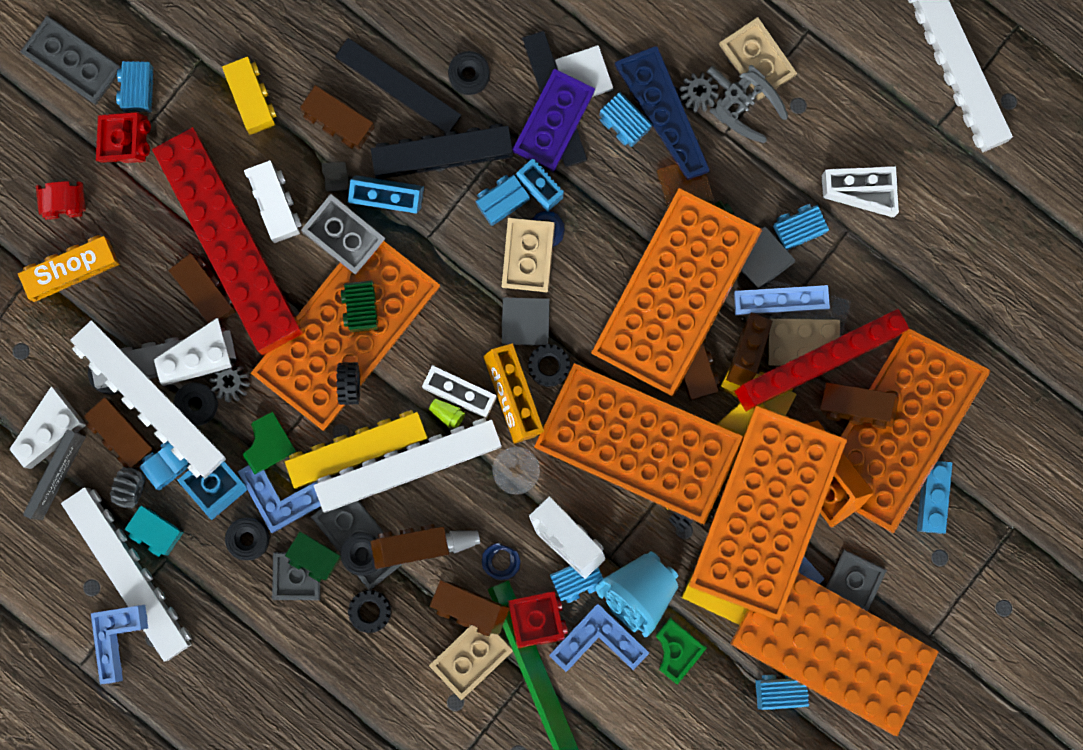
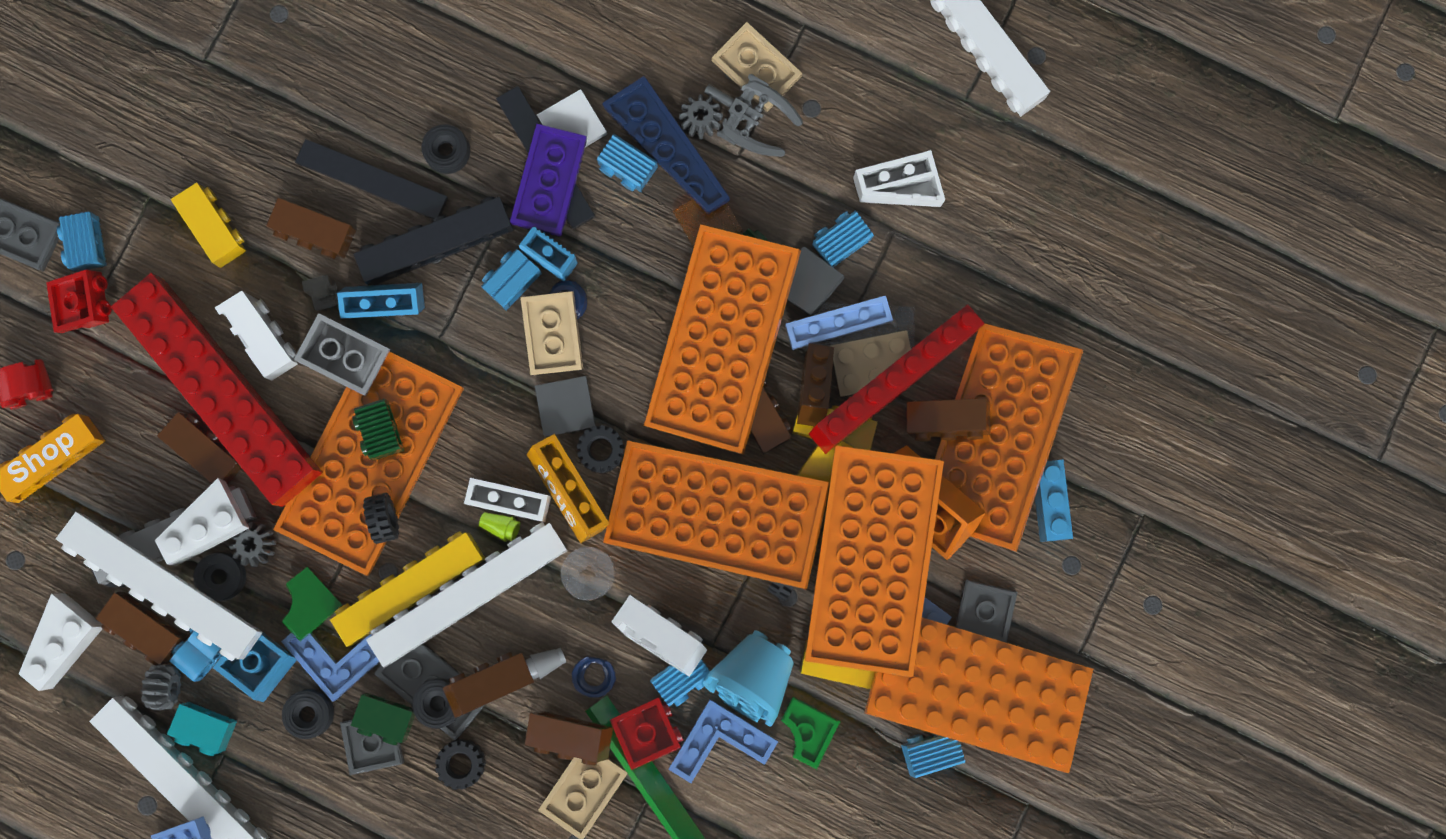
camera: 15 degrees left, 0 degrees up
(54, 475) = (75, 692): dark grey tile -> none

